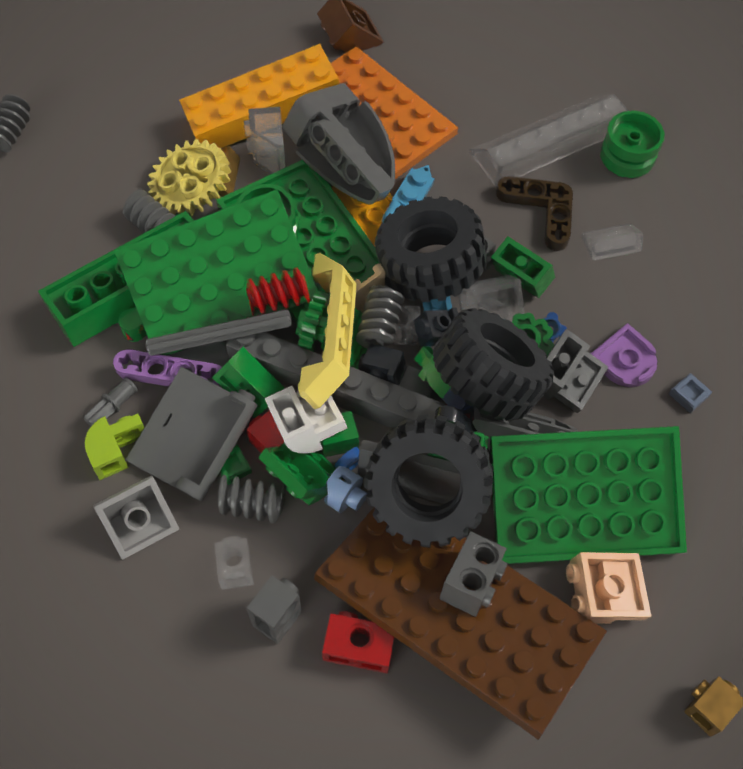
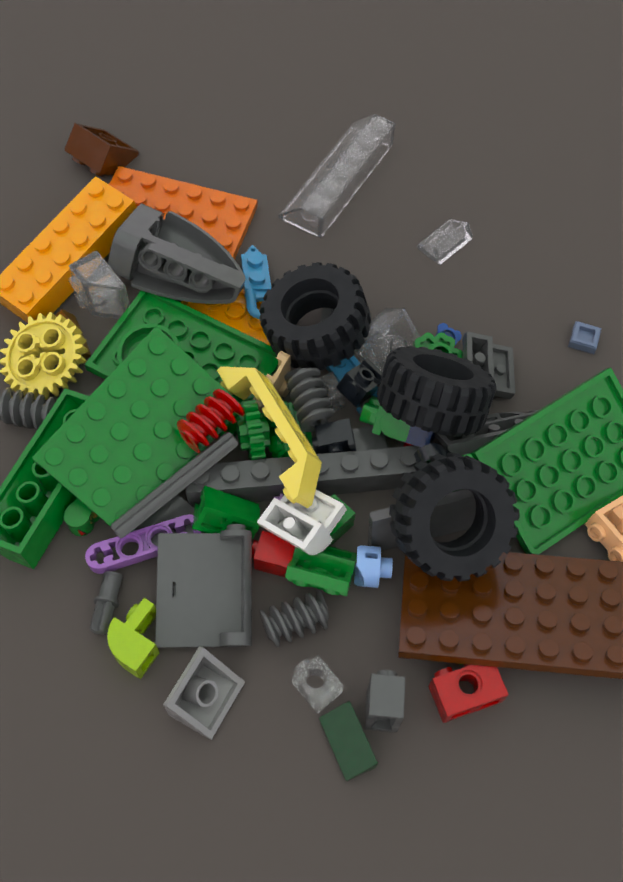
camera: 30 degrees left, 0 degrees up
(229, 627) = (348, 741): none -> dark green slope
(235, 465) = (261, 598): green tile -> none
(349, 459) = (356, 538): blue tile -> none
(470, 572) = (525, 577): dark grey brick -> none
(525, 265) = (394, 293): green brick -> none
(552, 202) = (377, 230): dark brown beam -> none
(628, 357) = (521, 331): medium lavender tile -> none
(632, 144) = (413, 150): green wheel -> none

